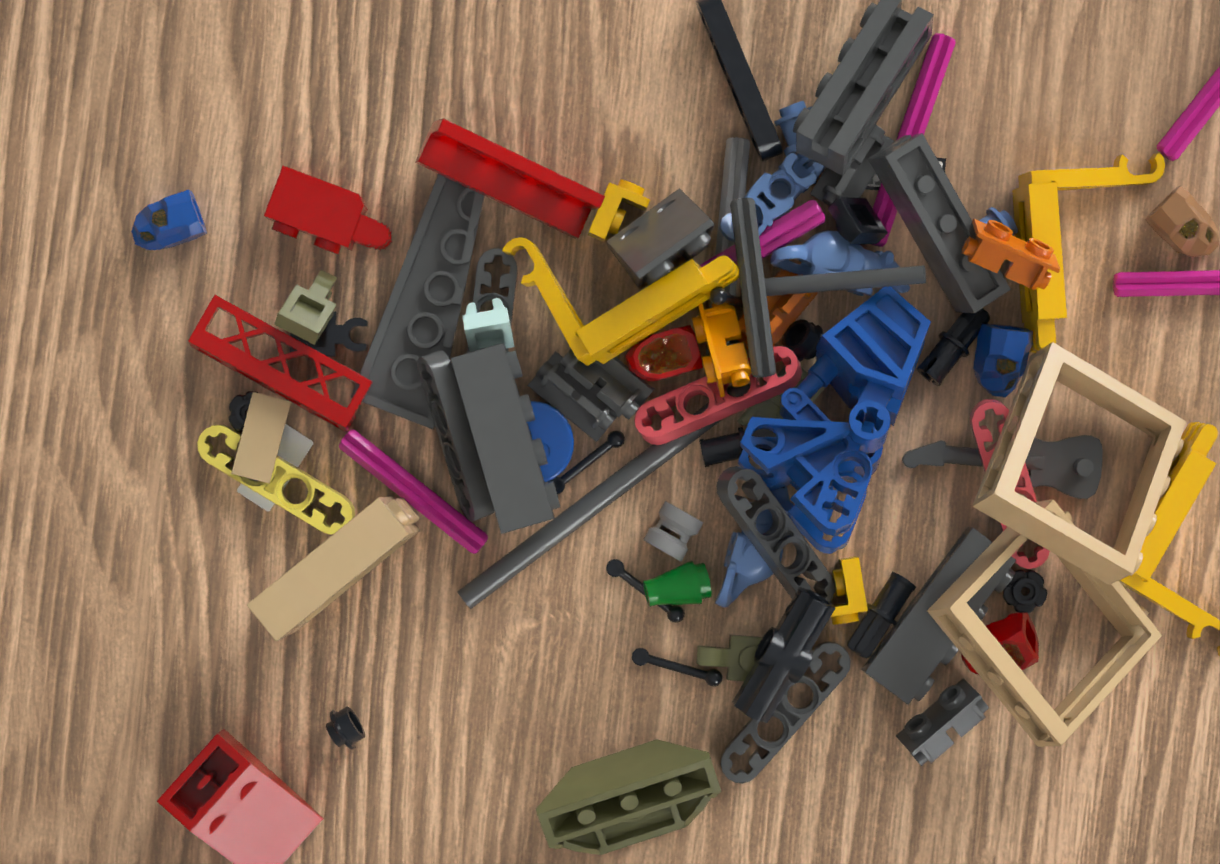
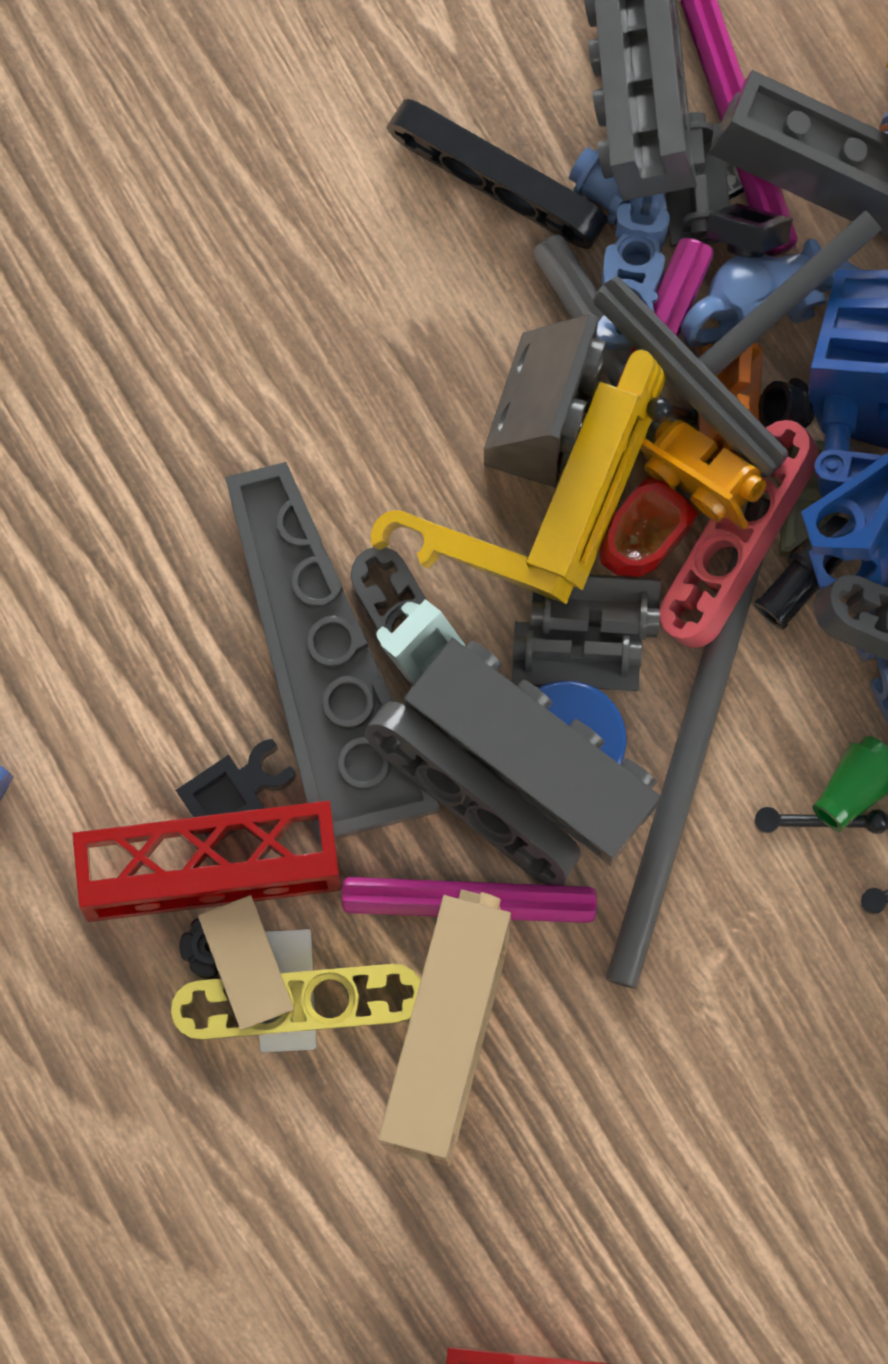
camera: 30 degrees left, 10 degrees down
(309, 310) = (196, 772): olive plate -> none
(324, 212) = (135, 653): red hinge -> none
(345, 728) = (592, 1237): black plate -> none
(508, 177) = (318, 457): red fence -> none
(609, 215) = (464, 425): yellow bracket -> none
(614, 440) = (657, 673): black hinge -> none
(680, 523) = (803, 725): light grey wheel -> none

